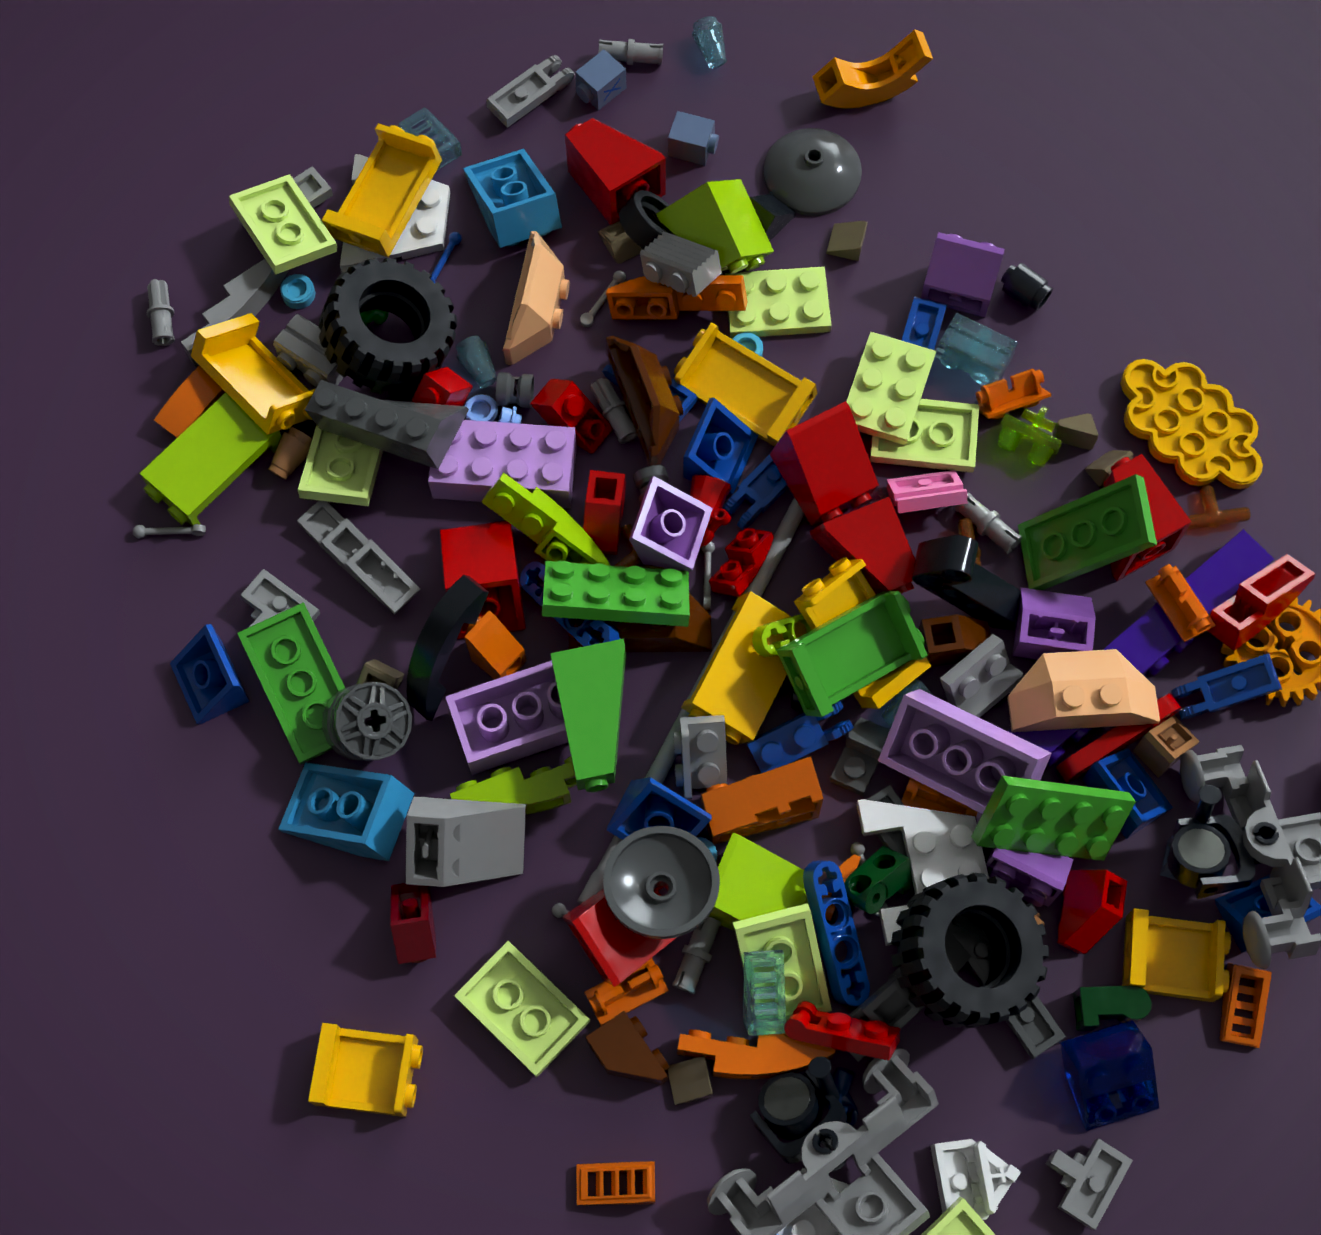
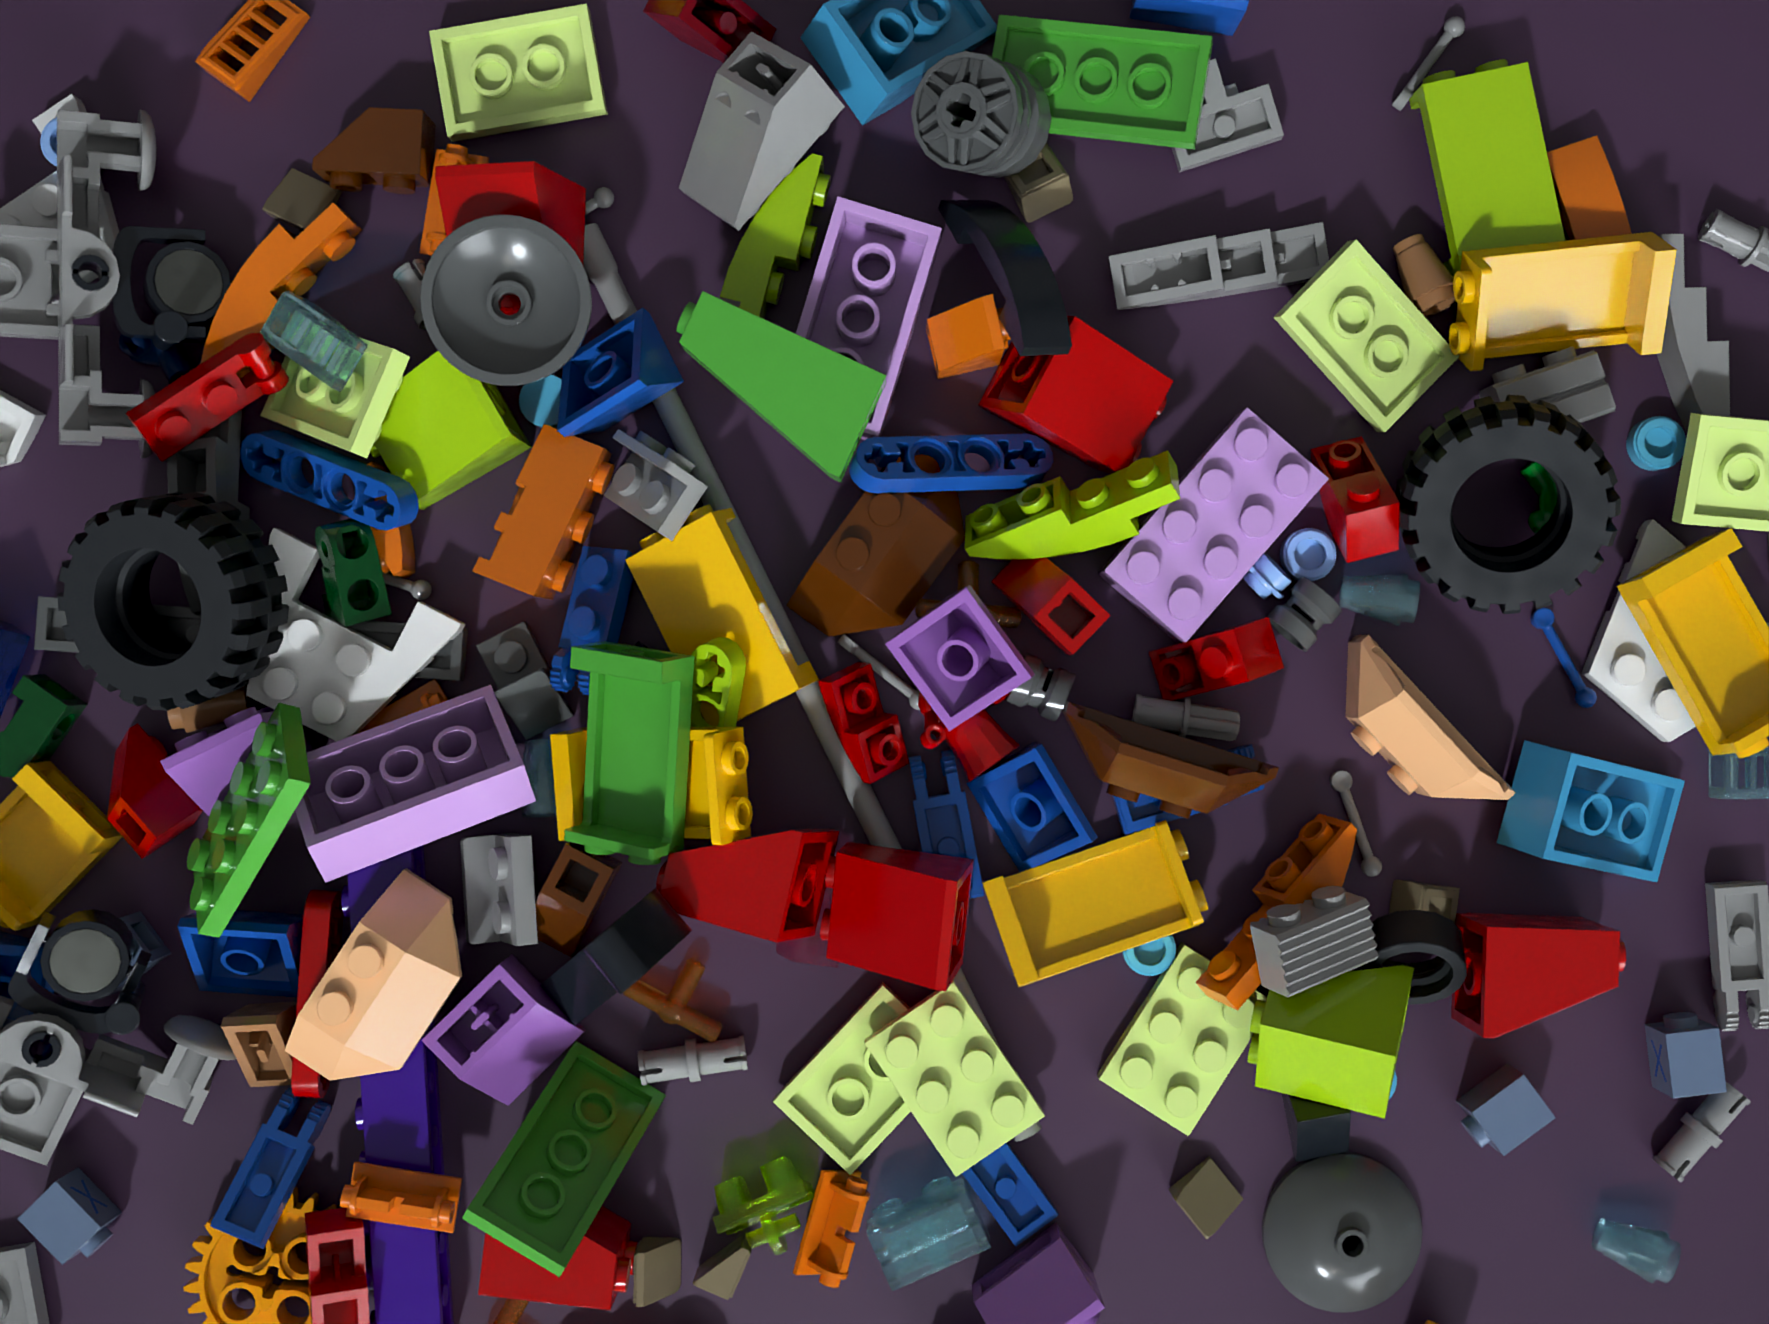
camera: 130 degrees right, 20 degrees up
(398, 427) = (1350, 419): dark grey wedge -> none
(616, 593) = (919, 524): bright green plate -> none
(926, 491) = (784, 1016): bright pink plate -> none

